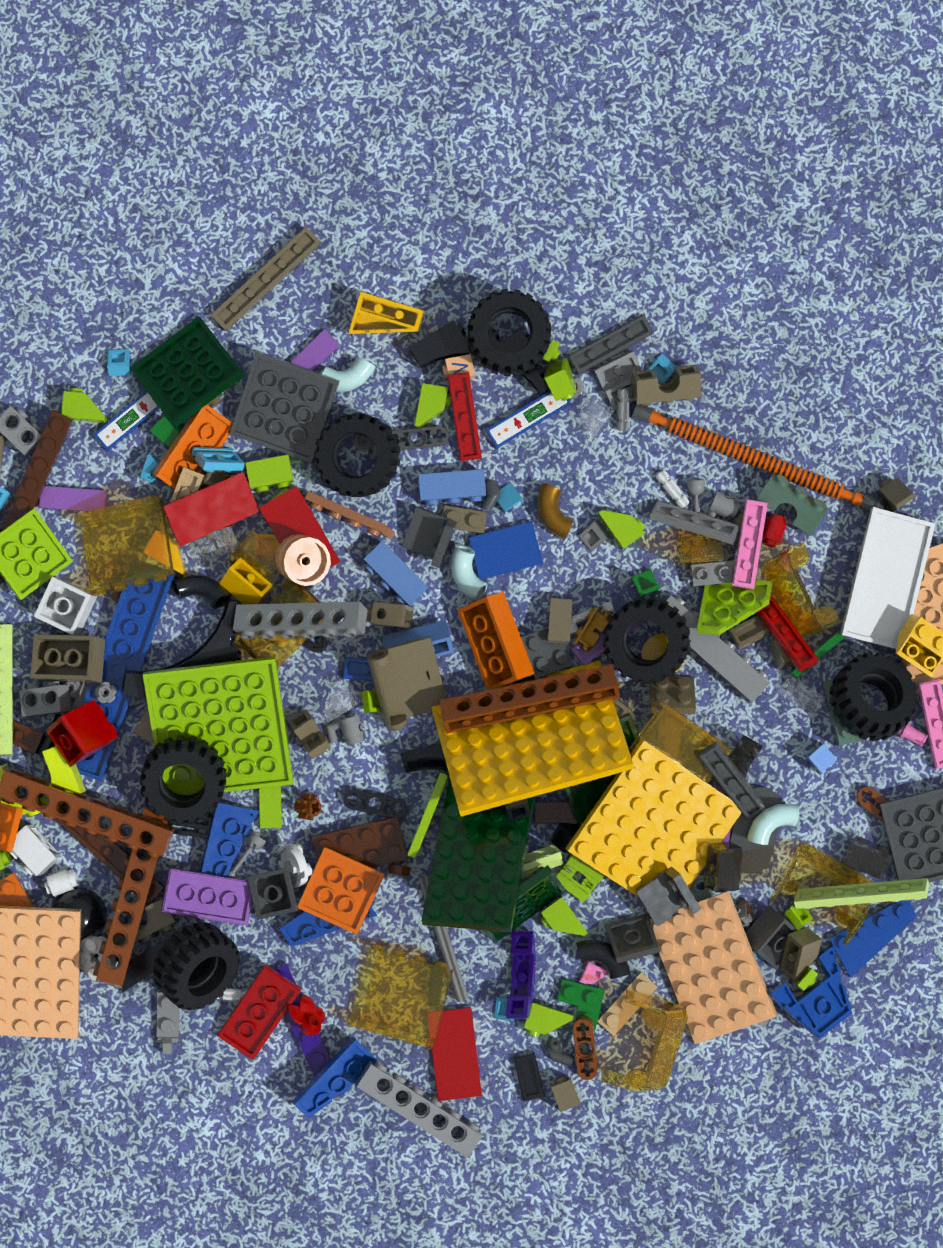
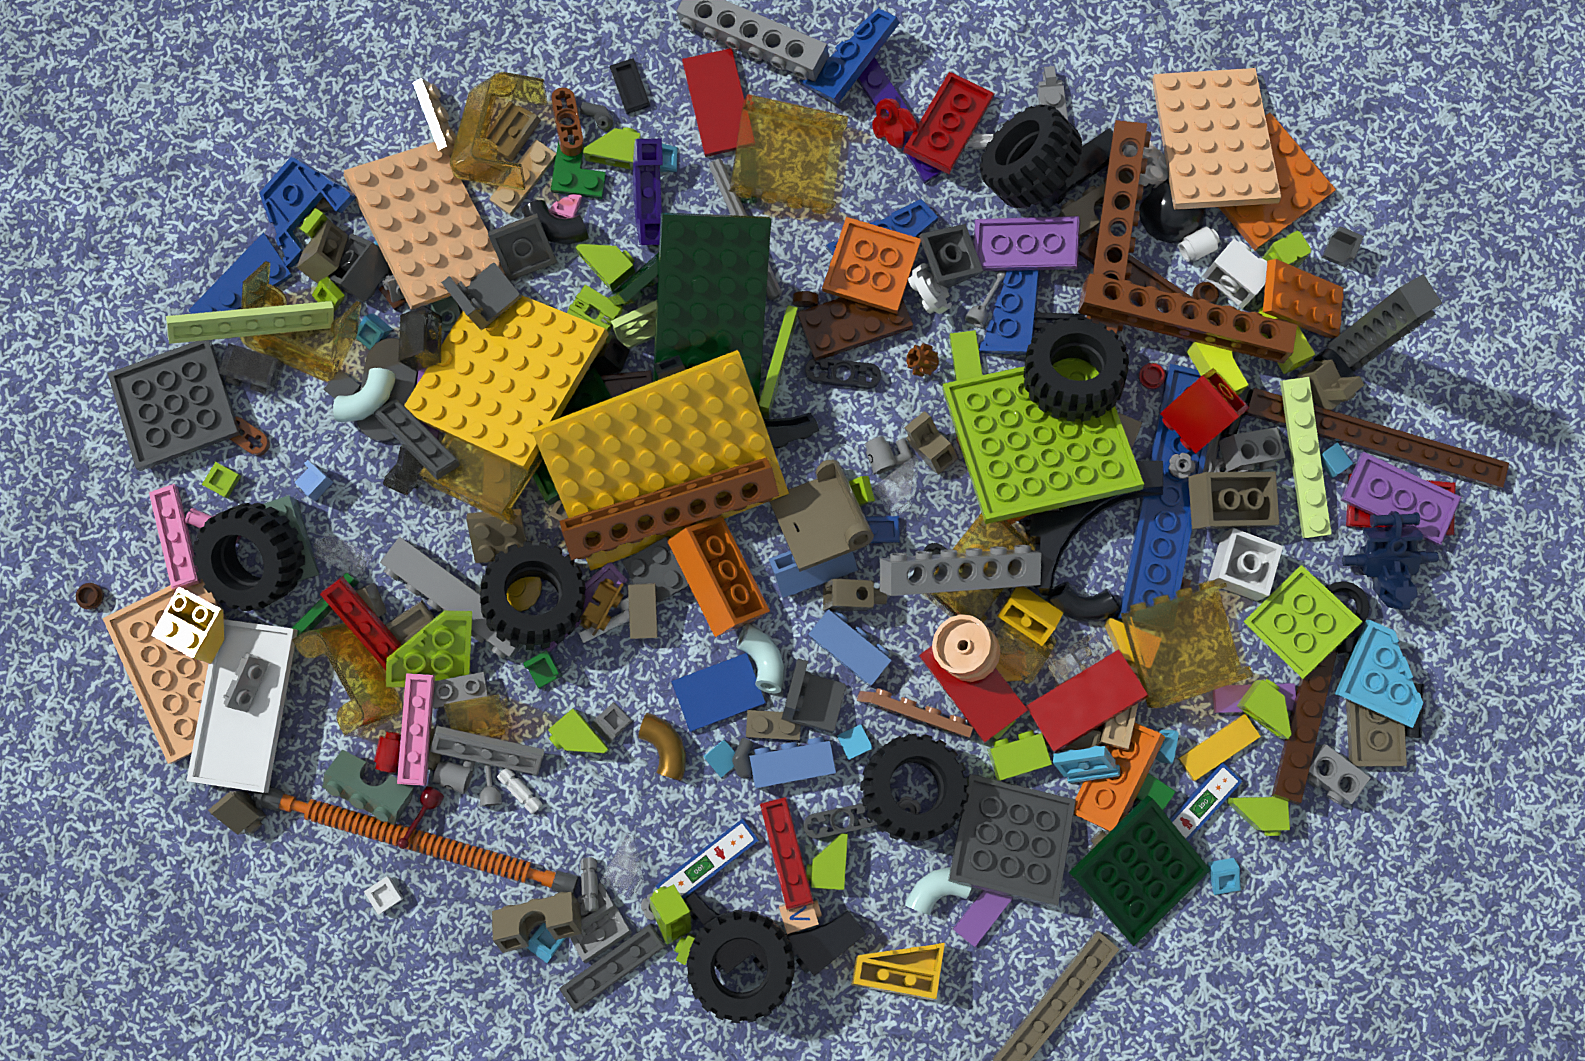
camera: 170 degrees right, 5 degrees down
(61, 839) = (1206, 291): none -> reddish brown plate
(66, 489) = (1267, 707): none -> lime slope
(107, 463) = (1218, 747): none -> yellow tile
(117, 774) = (1151, 376): none -> red plate
(400, 498) = (854, 742): none -> medium azure slope
(565, 1093) = (586, 69): dark tan brick -> none
(634, 1045) = (512, 130): none -> dark tan plate
(696, 1064) = (436, 115): none -> tan plate
(744, 489) = (429, 799): none -> dark red hinge
(764, 882) = (372, 330): none -> dark azure slope
(786, 419) = (383, 895): none -> white plate
(792, 836) = (342, 385): none -> dark grey tile
(886, 587) = (242, 691): none -> light grey hinge
(896, 767) = (221, 480): none -> lime plate

